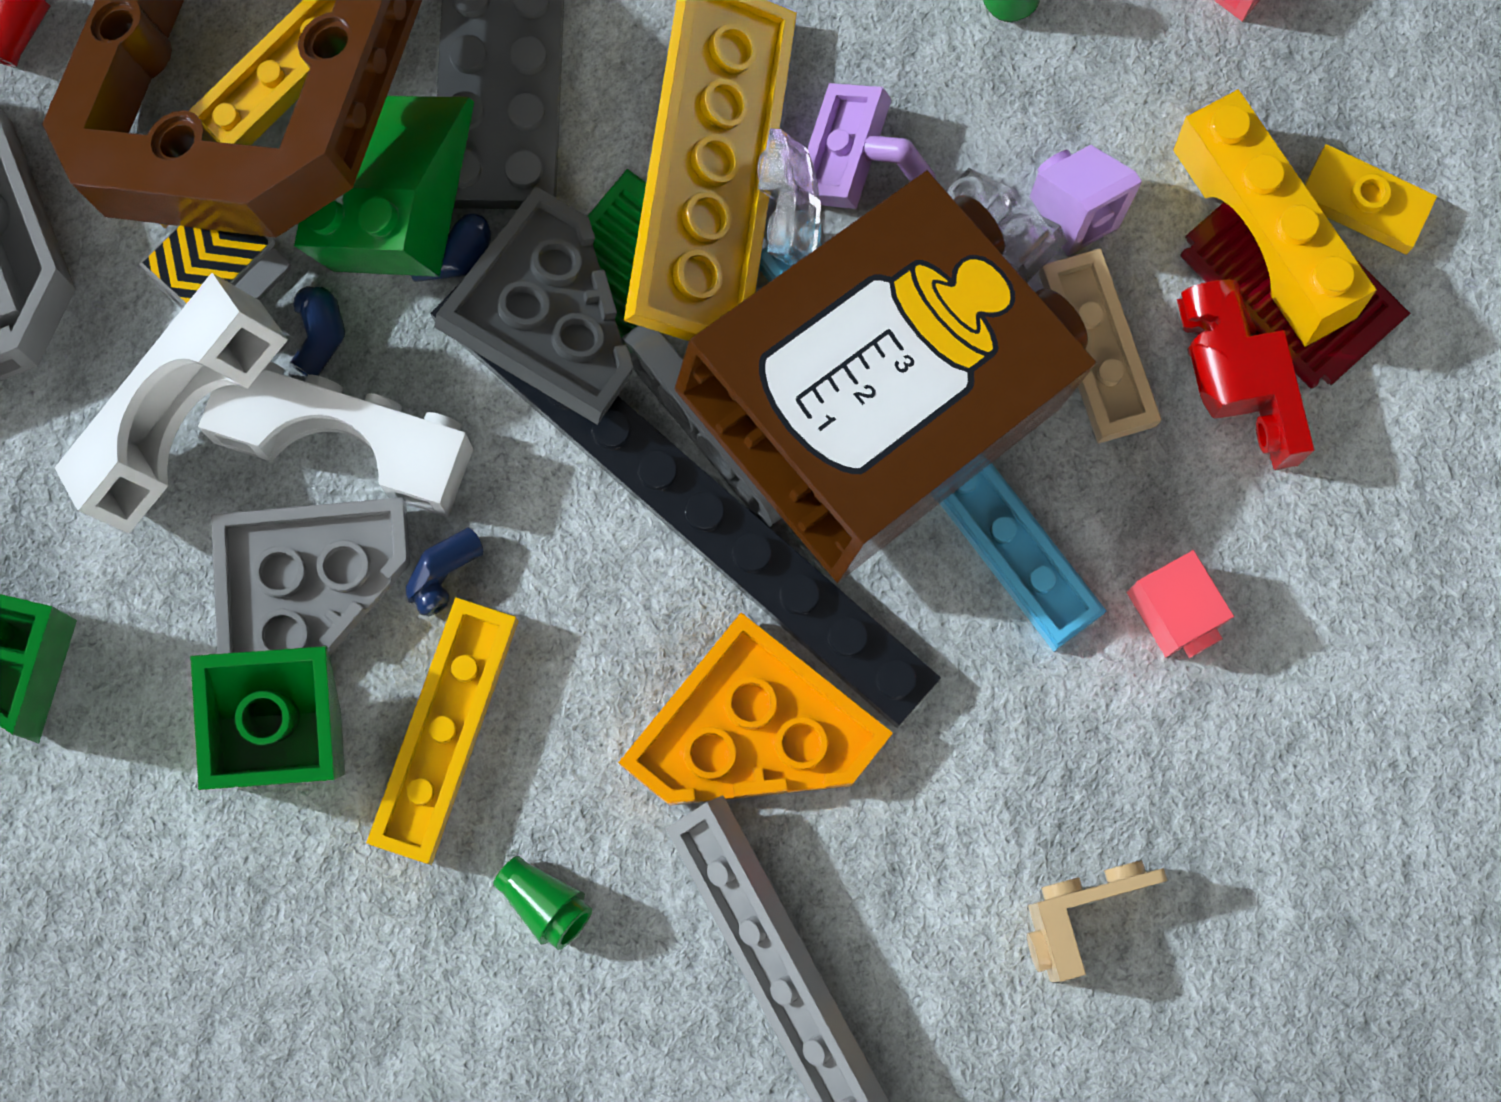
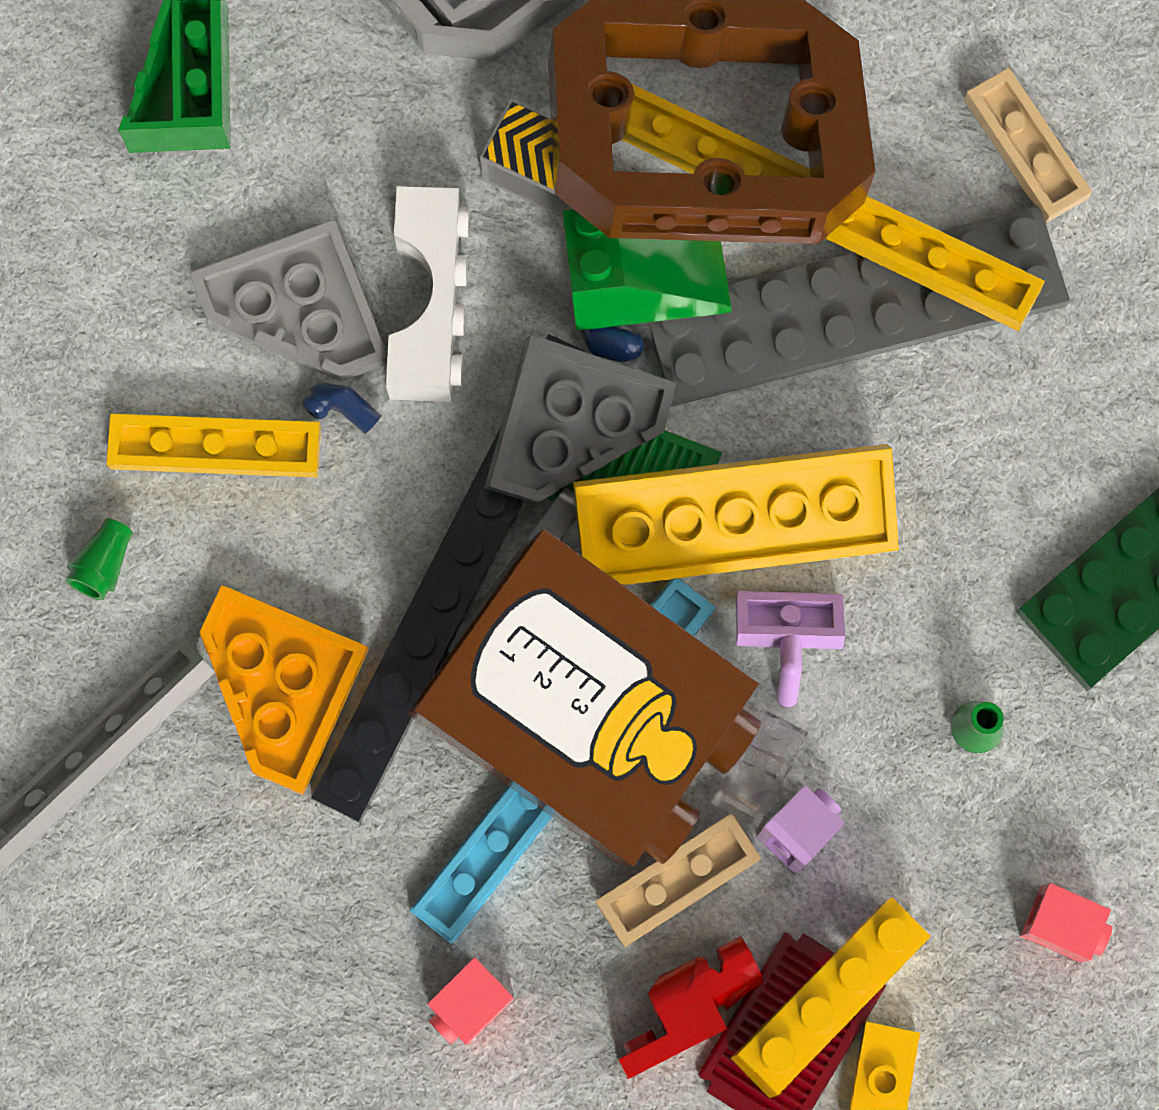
camera: 75 degrees right, 0 degrees up
(124, 453) = (359, 138): white arch -> none
(266, 718) = (179, 310): green slope -> none
(323, 329) = (513, 255): dark blue arm -> none
(791, 181) = (739, 584): clear slope -> none
(1053, 941) = (167, 965): tan bracket -> none

